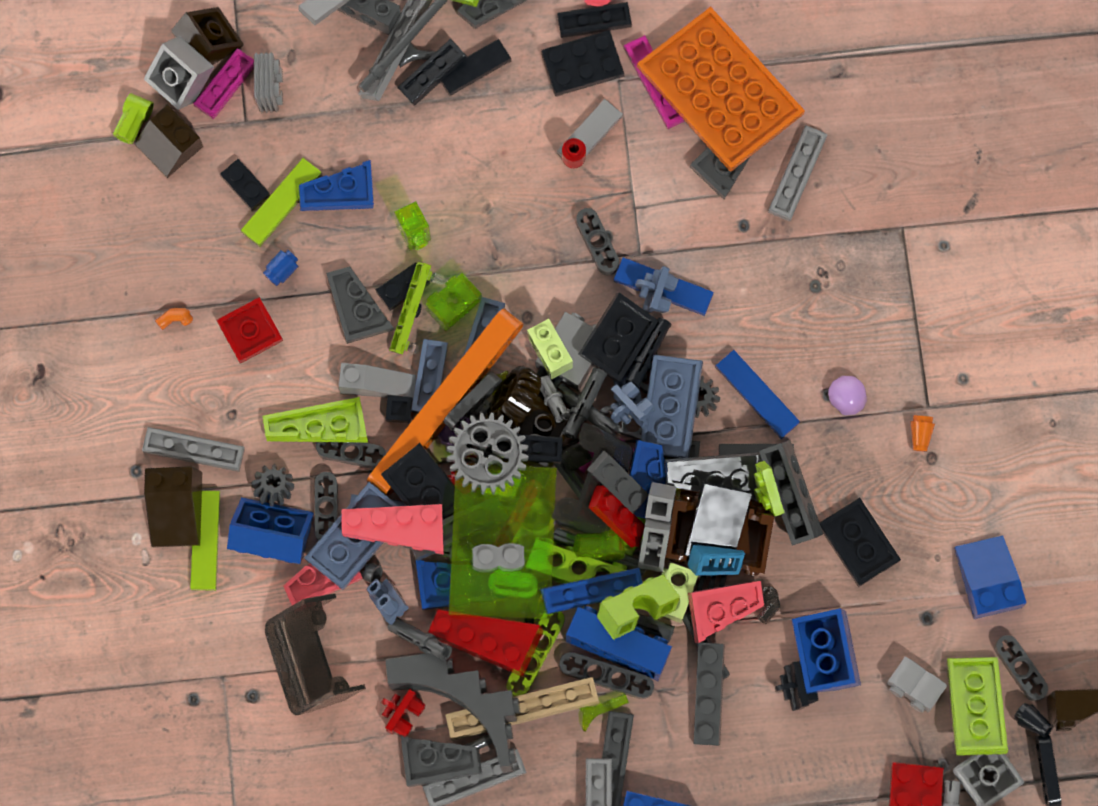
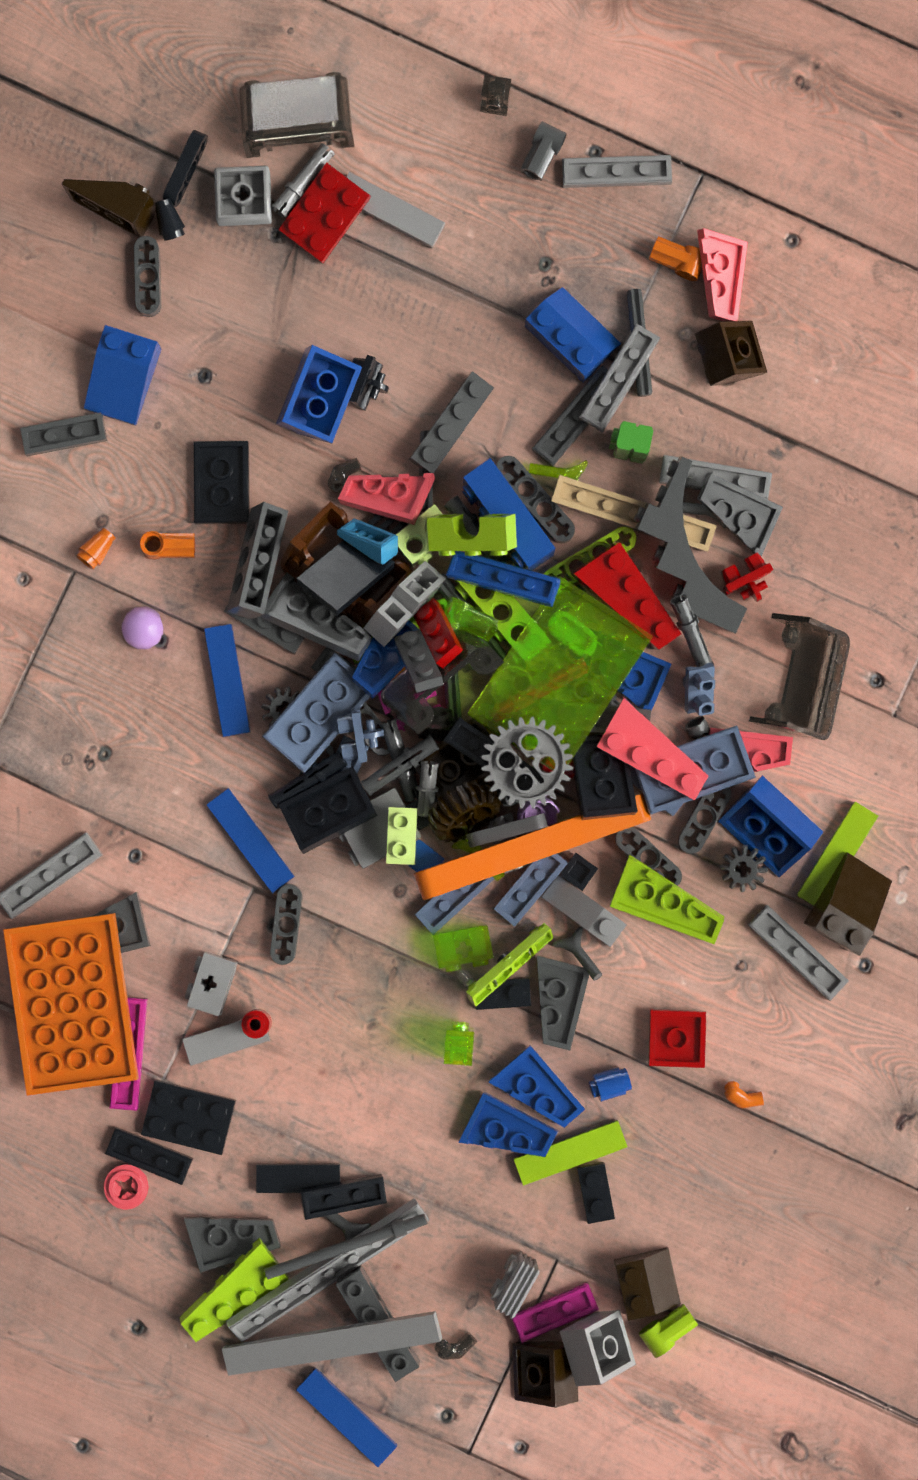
camera: 145 degrees left, 10 degrees up
(282, 15) = (455, 1350): none -> clear smoke arm
(334, 234) = (537, 1086): none -> blue wing
(370, 353) = (573, 945): none -> dark grey piece
(506, 557) = (583, 659): light grey brick -> none
(520, 348) = (425, 857): none -> blue panel
(557, 761) = (631, 442): none -> bright green brick
(628, 151) = (211, 1000): none -> light grey brick
(653, 287) = (263, 839): sand blue hips -> none
(767, 489) = (280, 571): lime plate -> none
(866, 468) = (172, 545): none -> orange piece
(916, 685) = (254, 317): light grey brick -> none
(977, 706) = (212, 263): lime tile -> none
(1003, 504) = (63, 434): none -> dark grey plate

